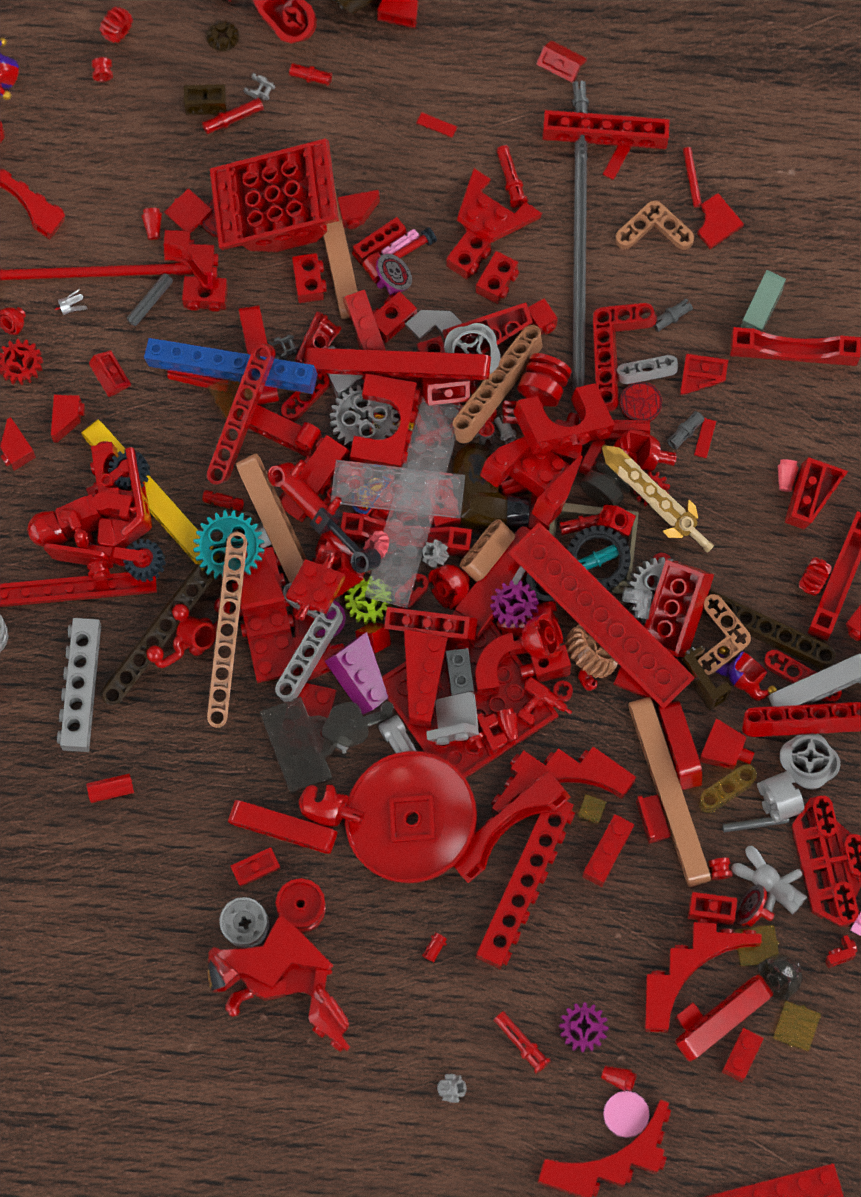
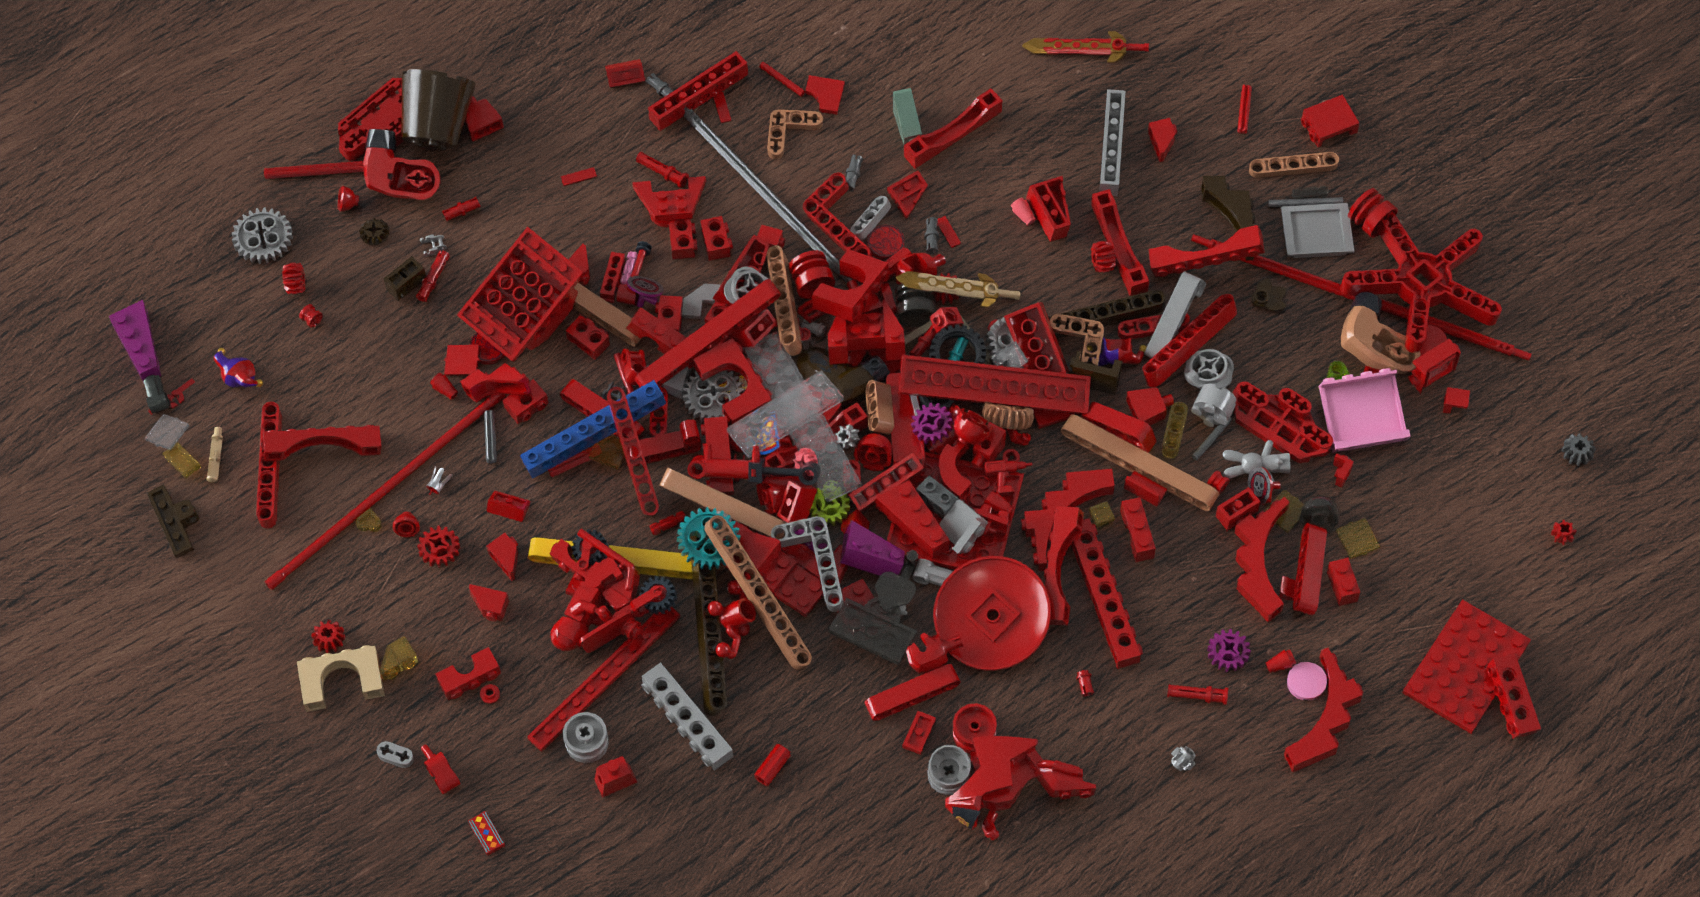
camera: 40 degrees left, 10 degrees down
(315, 586) = (793, 515): red plate -> none

